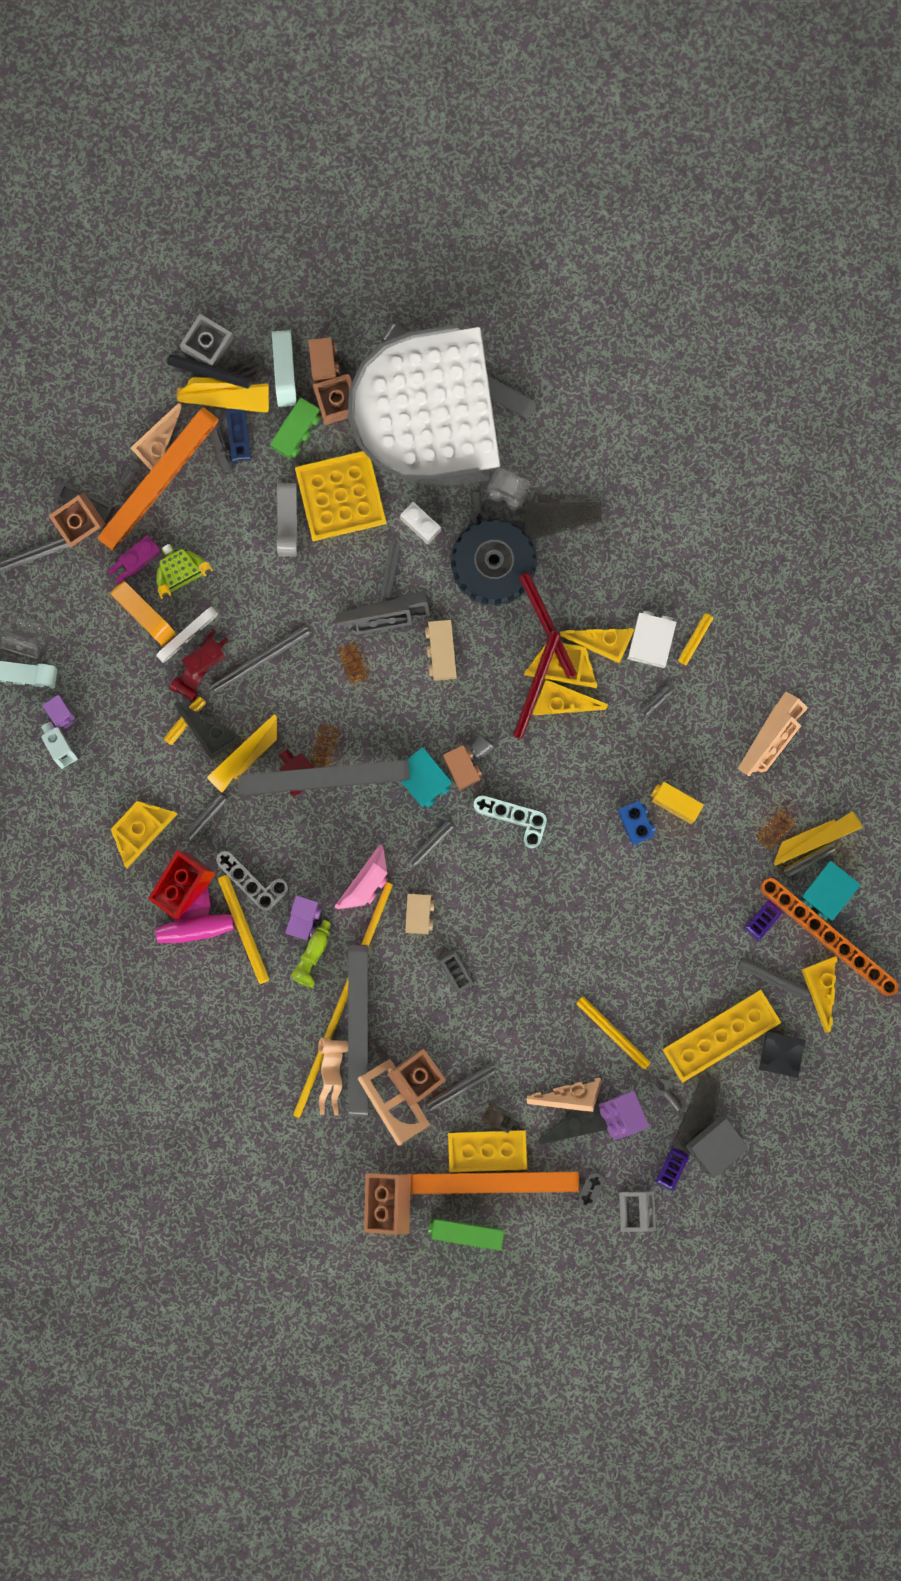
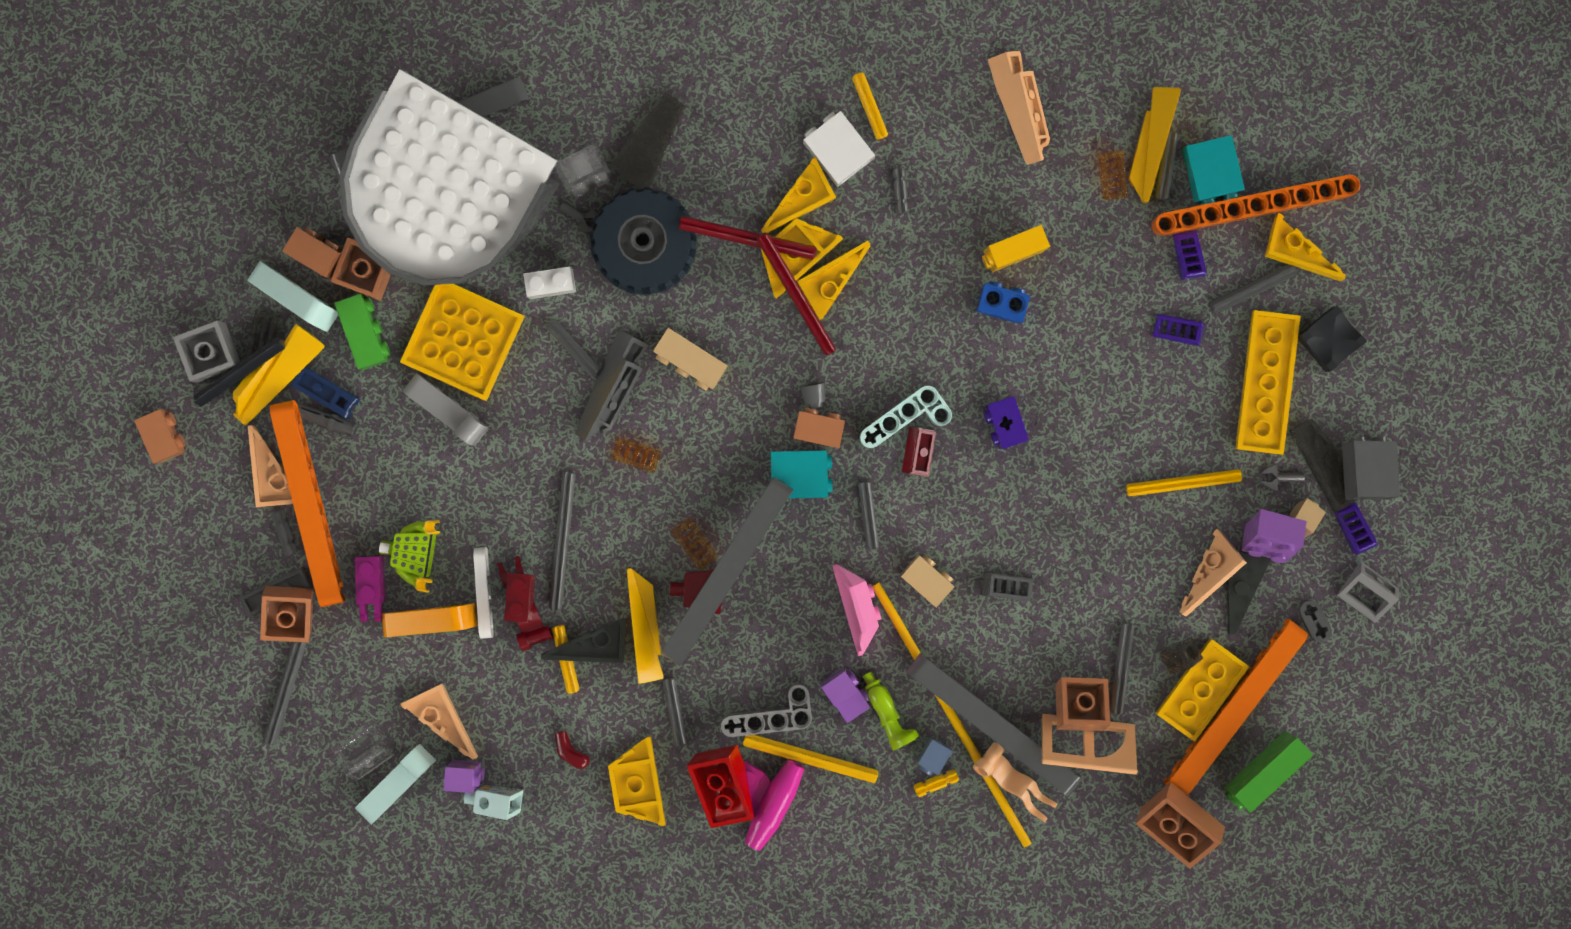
camera: 40 degrees left, 5 degrees up
(86, 666) = (439, 713): none -> light nougat wing
(124, 769) = (569, 753): none -> dark red arm
(129, 353) = (160, 436): none -> nougat brick
(290, 1024) = (936, 783): none -> yellow axle
(306, 1008) = (933, 756): none -> sand blue brick
(498, 844) = (919, 451): none -> dark red slope
(570, 880) = (1016, 430): none -> dark purple brick
(657, 1130) = (1310, 512): none -> tan brick
(717, 966) = (1198, 333): none -> dark purple slope

